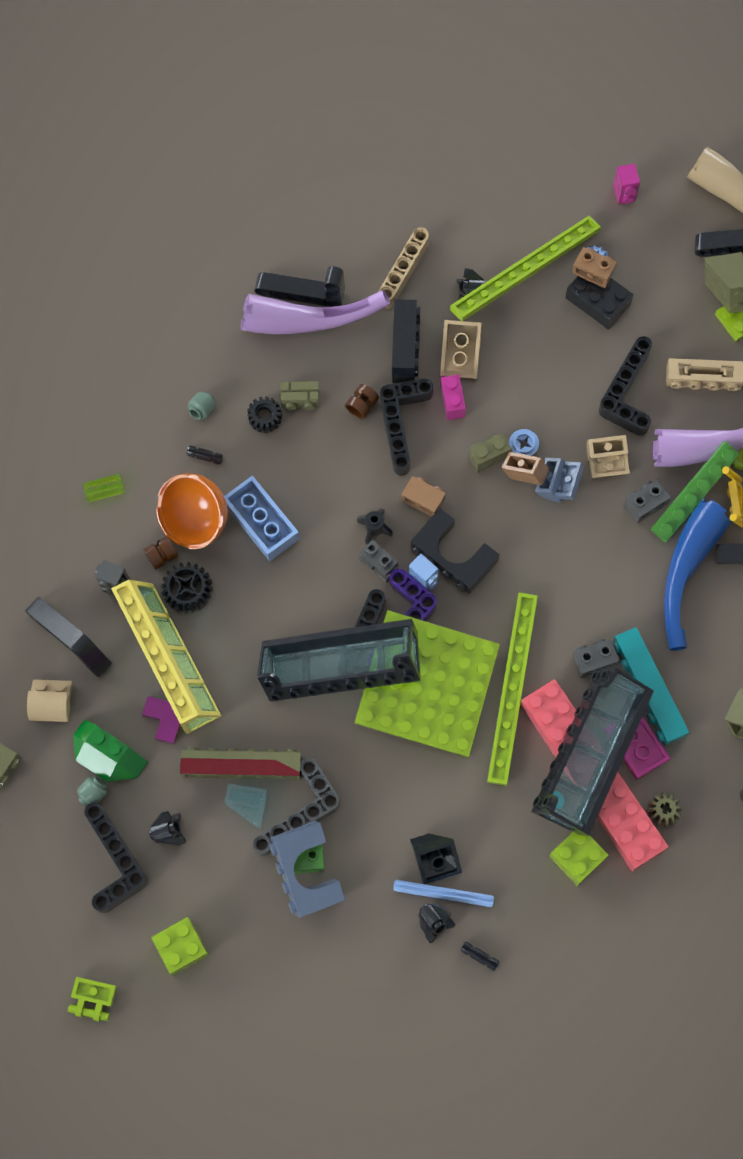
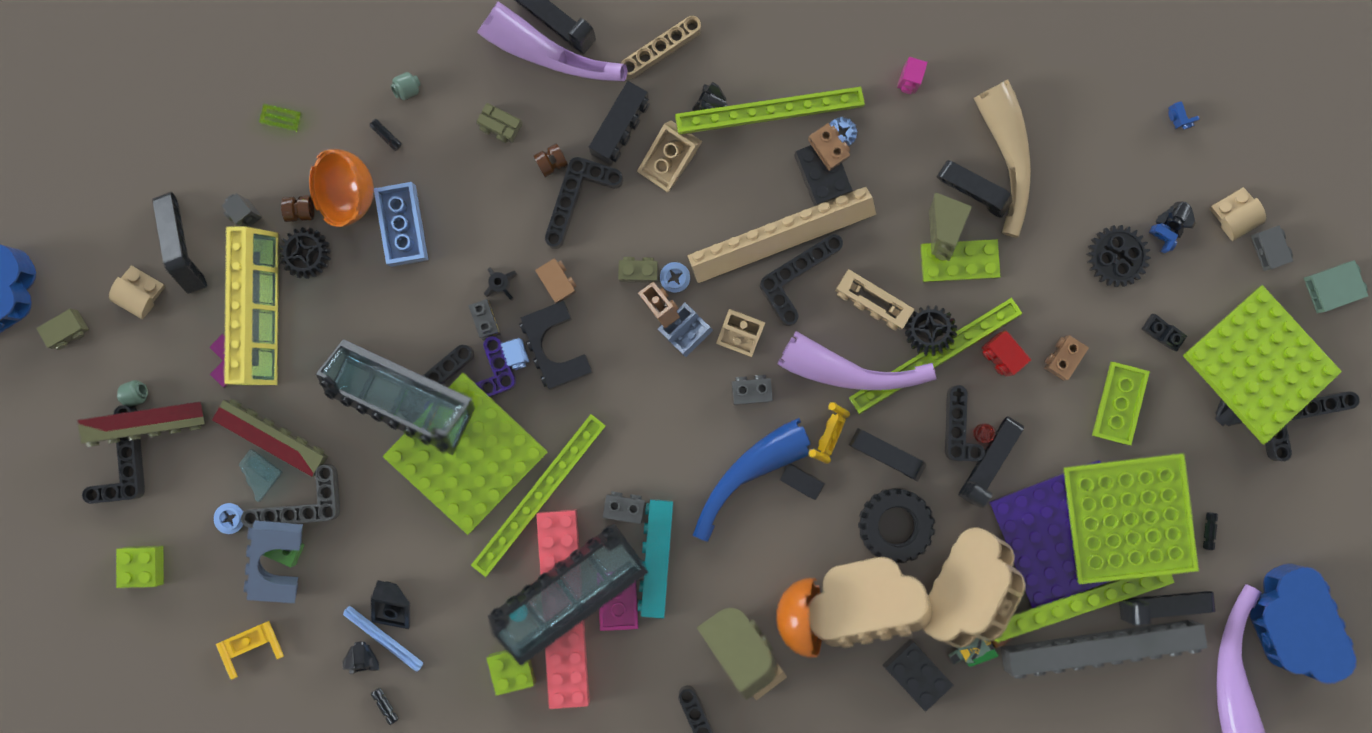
camera: 25 degrees right, 15 degrees up
(93, 992) = (51, 565): lime plate -> none
(106, 754) = (161, 366): green wedge -> none
(116, 808) = (140, 423): none -> brick
(167, 829) = (178, 462): black brick -> none
(231, 861) = (221, 514): none -> light blue gear
(264, 424) = (455, 113): black tyre -> none
(317, 964) = (247, 641): none -> yellow plate
(453, 397) = (634, 200): dark pink brick -> none
(594, 361) = (782, 234): none -> tan brick
(672, 810) = (599, 667): olive gear -> none
(694, 491) = (797, 407): bright green plate -> none

